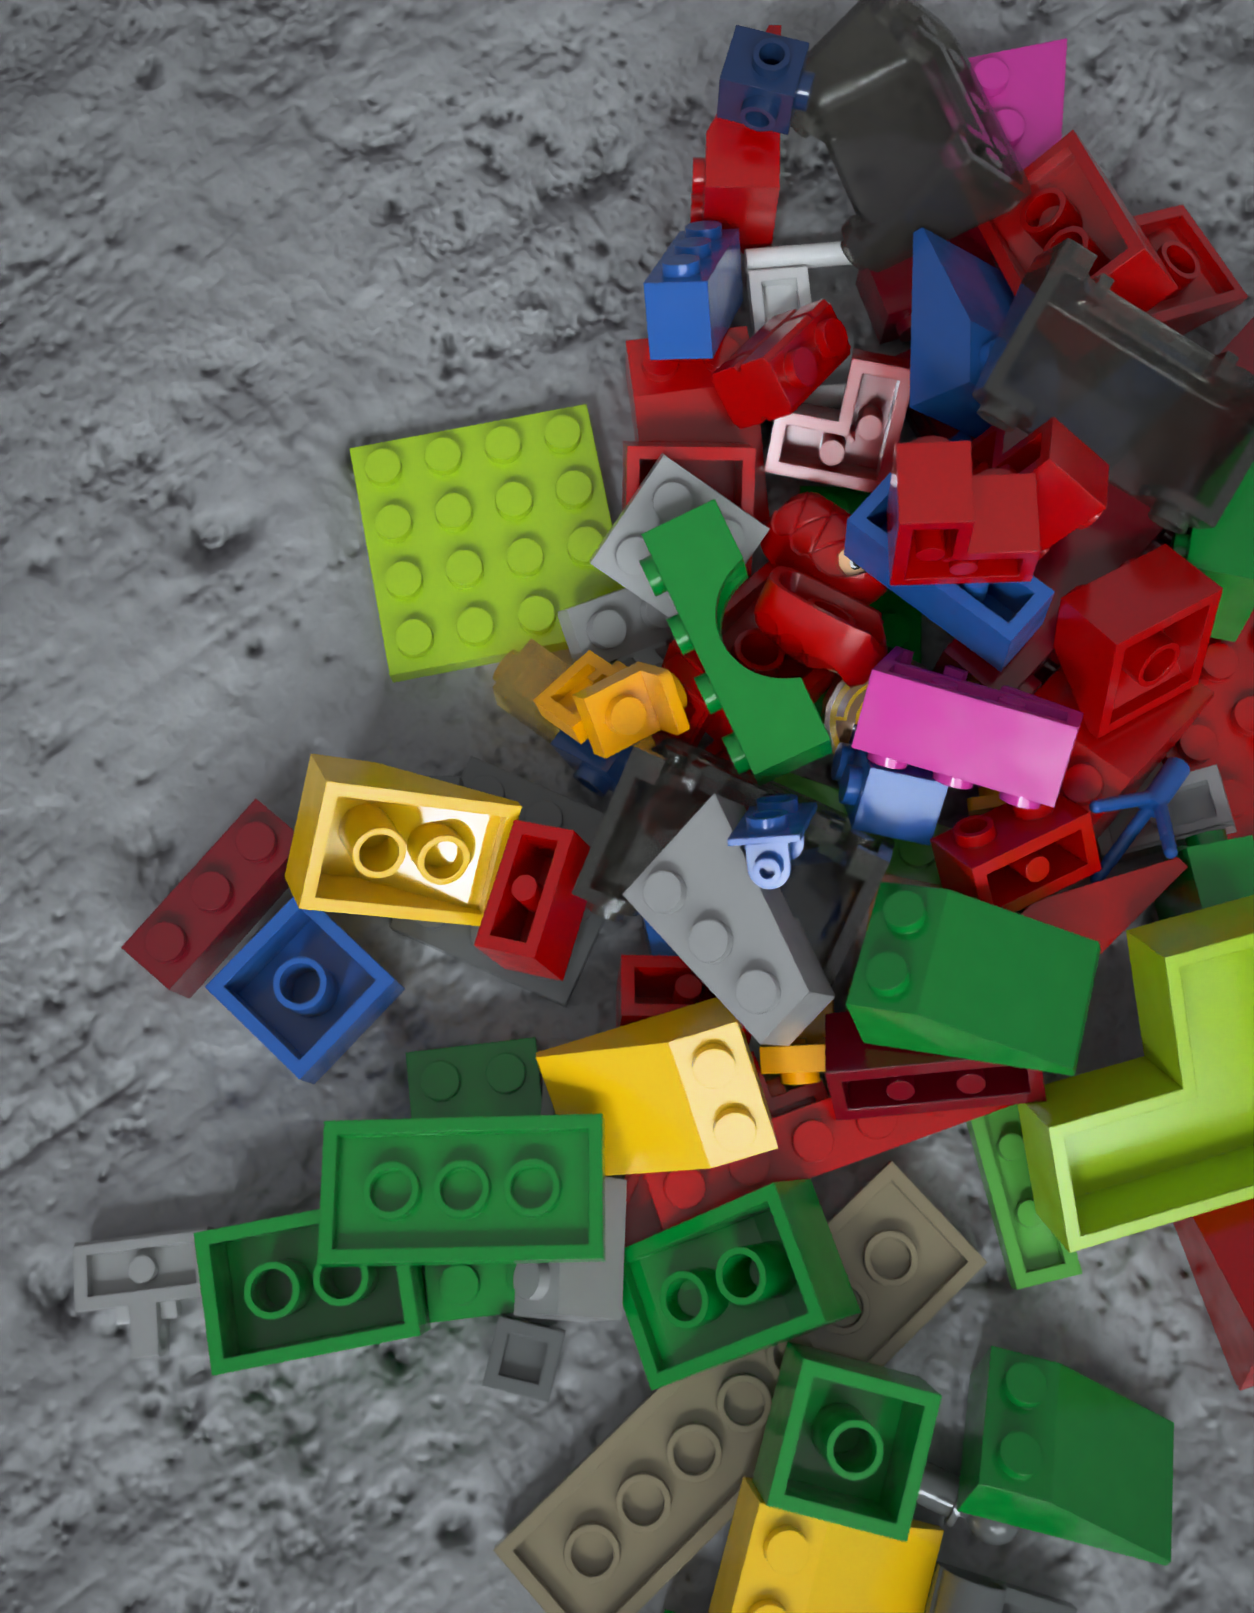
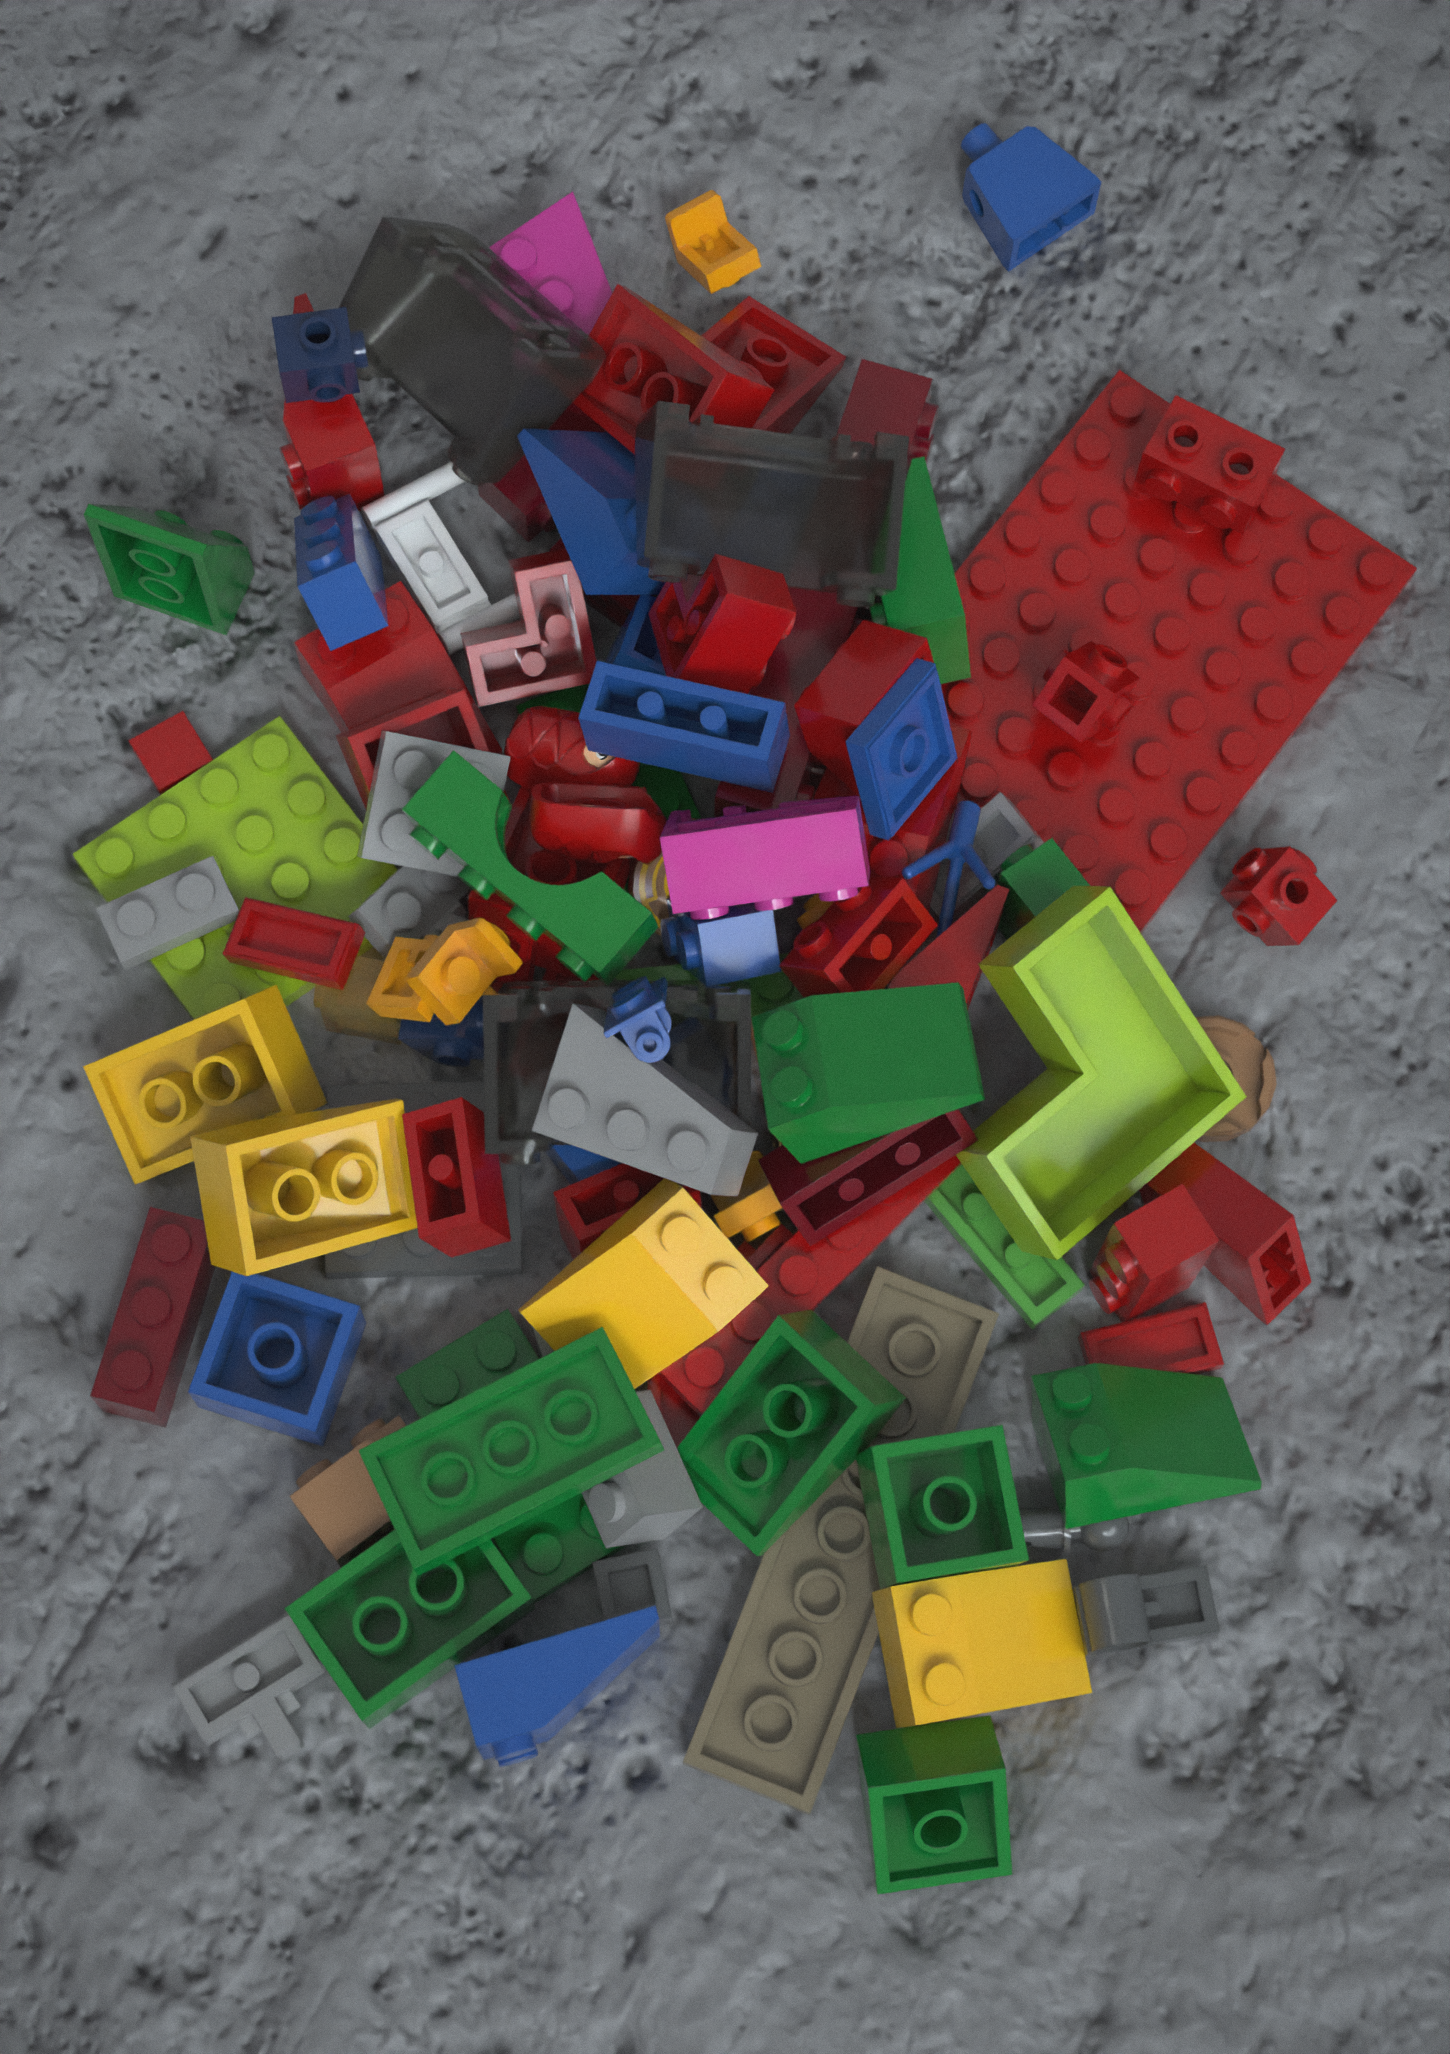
camera: 30 degrees left, 5 degrees down
(293, 1142) = (342, 1498): none -> medium nougat brick
(365, 704) = (203, 1078): none -> yellow slope
(381, 1419) = (540, 1686): none -> blue slope
(403, 537) = (168, 913): none -> light grey plate
(477, 394) = (170, 751): none -> red tile
(498, 615) = (294, 943): none -> red tile
(550, 224) = (171, 565): none -> green slope
(782, 364) = (451, 603): red brick -> none
(956, 523) = (675, 681): red brick -> none
(1127, 1361) = (1165, 1341): none -> red tile
(1146, 684) = (902, 749): none -> blue tile
(1167, 140) = (709, 244): none -> light orange bracket
(1168, 1292) = (1151, 1255): none -> red brick

